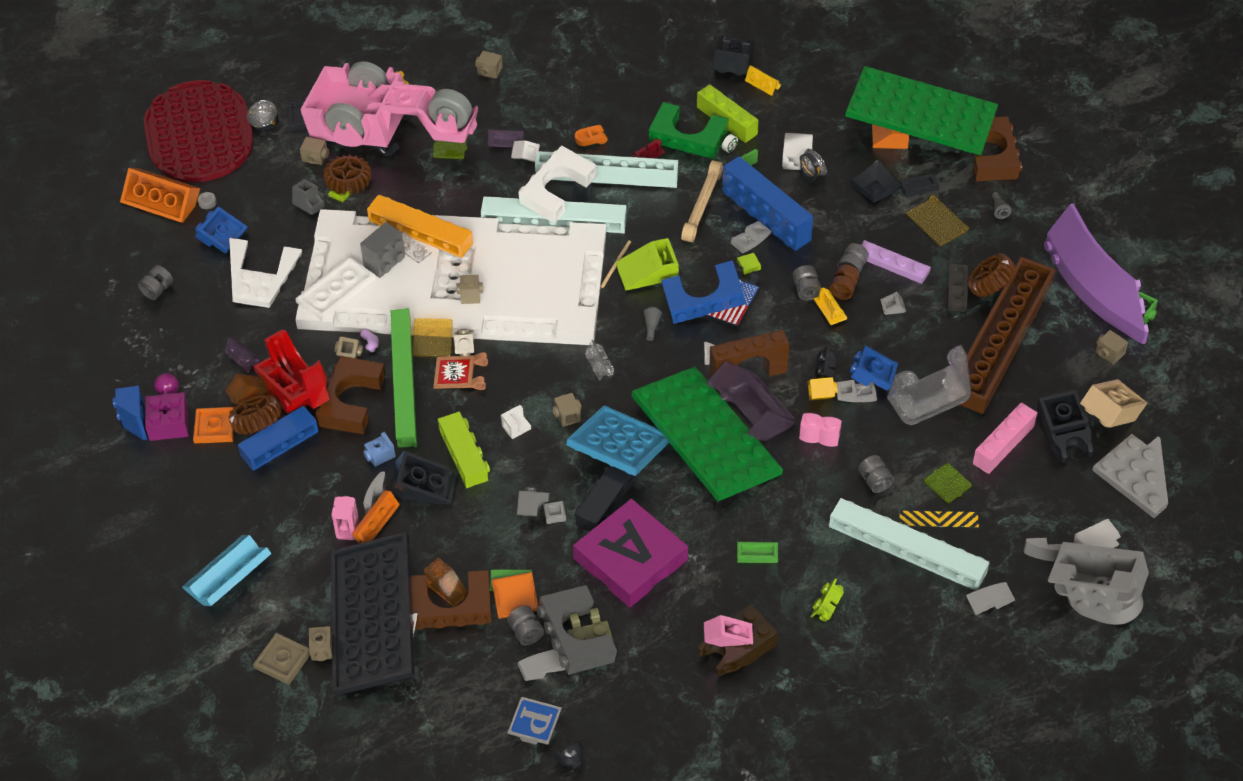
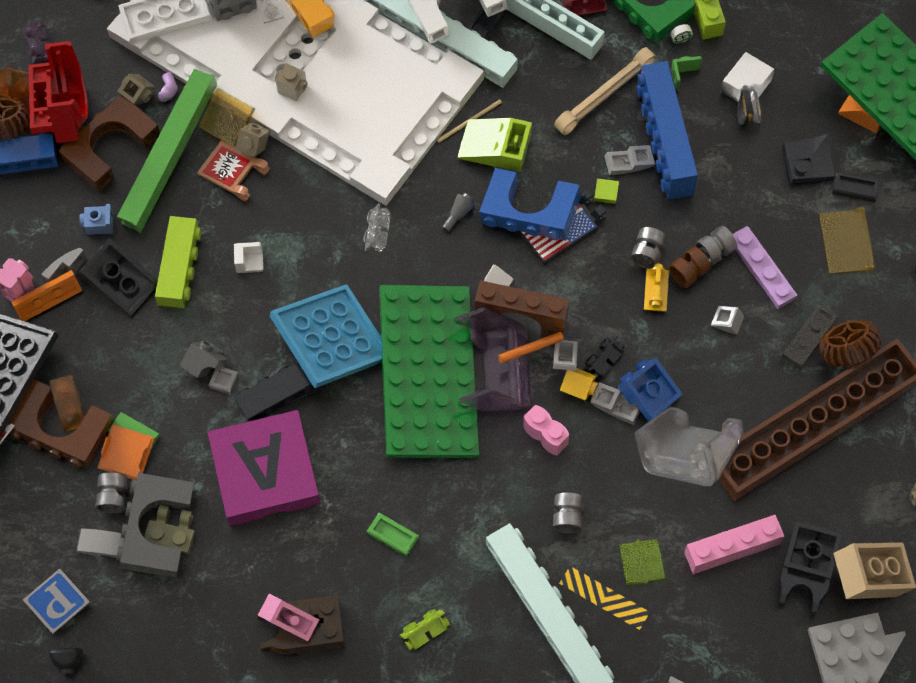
camera: 30 degrees right, 15 degrees up
(567, 409) = (307, 269): dark tan brick -> none
(772, 379) = (528, 348): none -> orange bar
(799, 374) = (565, 355): none -> light grey slope

